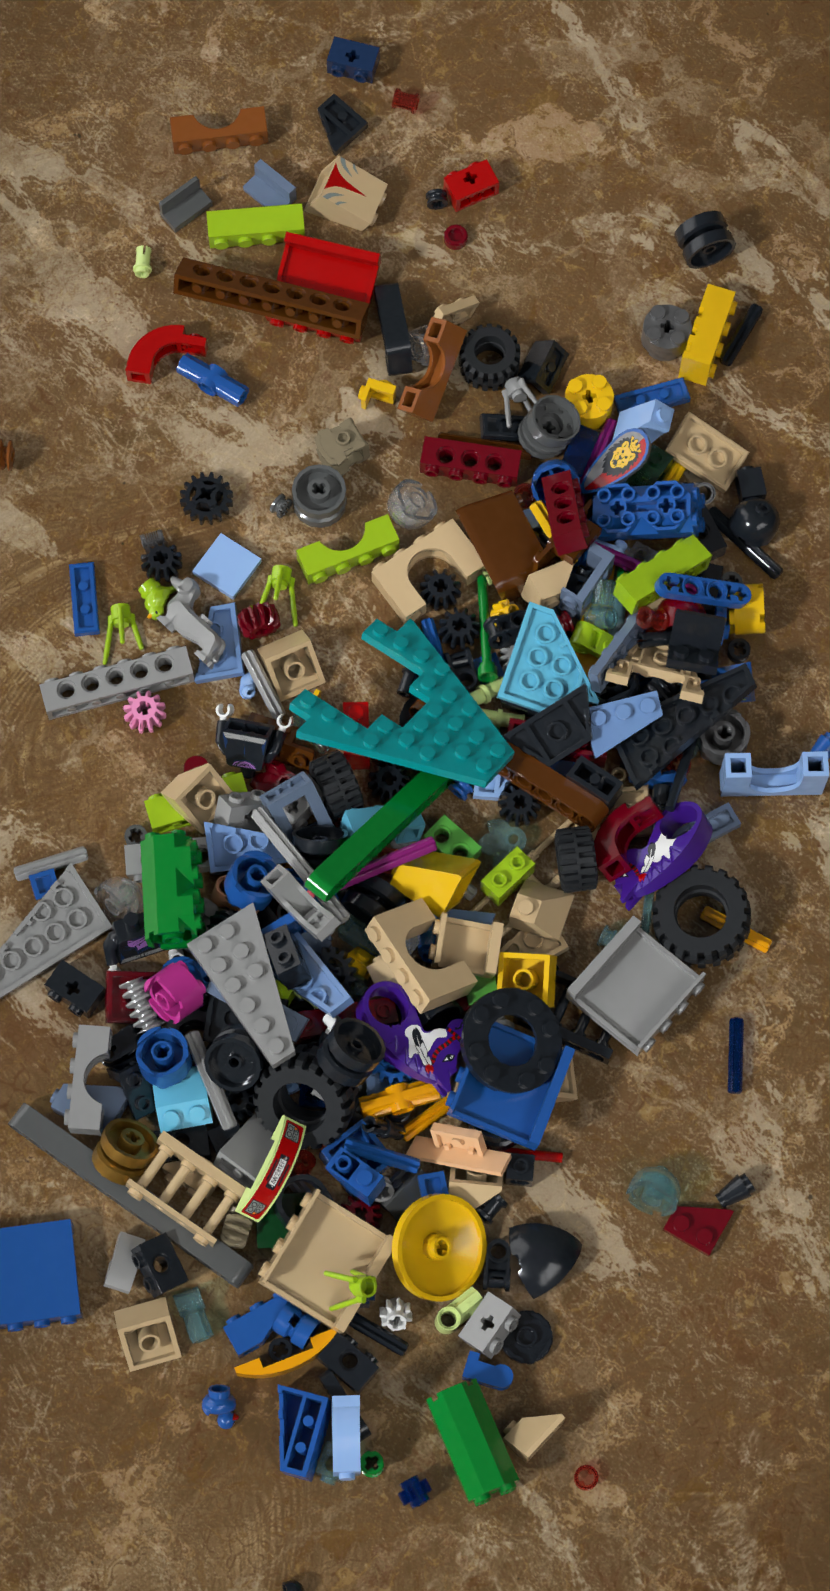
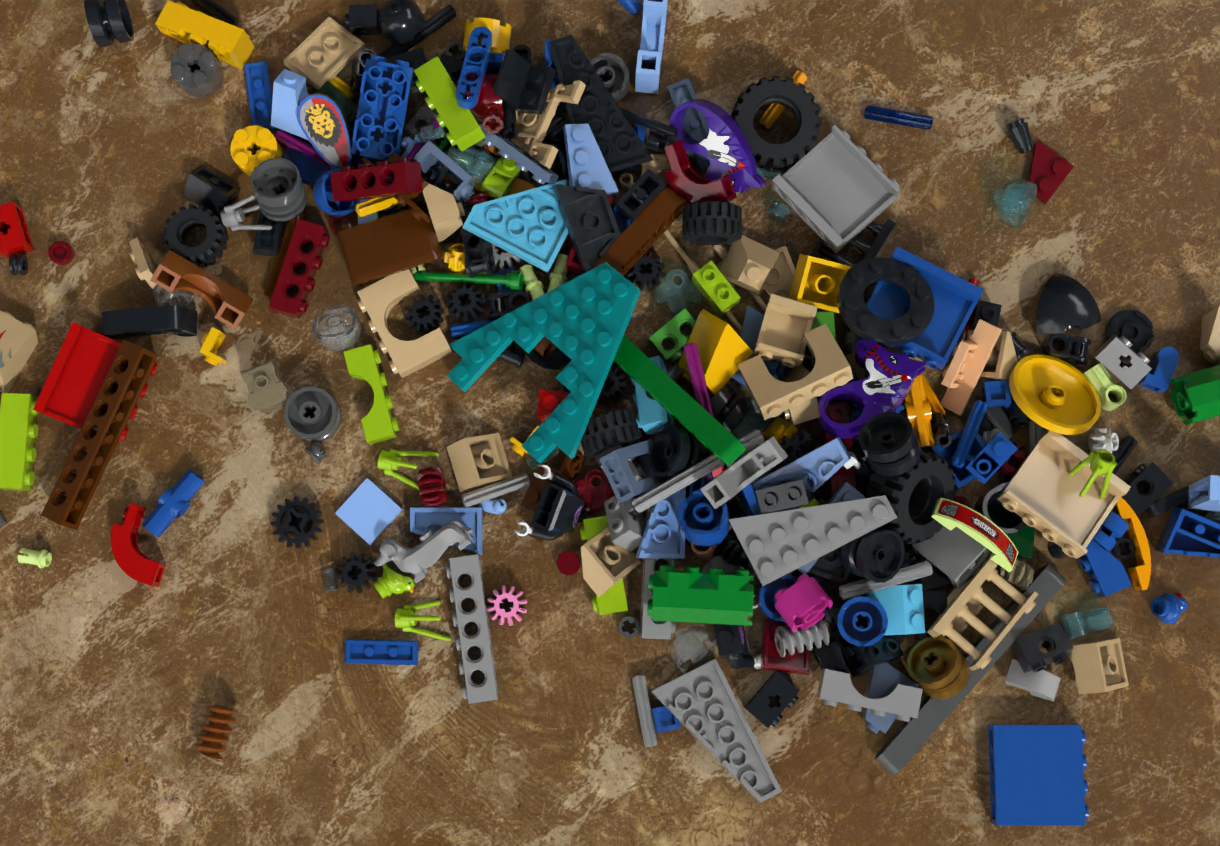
camera: 80 degrees left, 10 degrees up
(625, 558) = (428, 134): none -> clear light blue plate

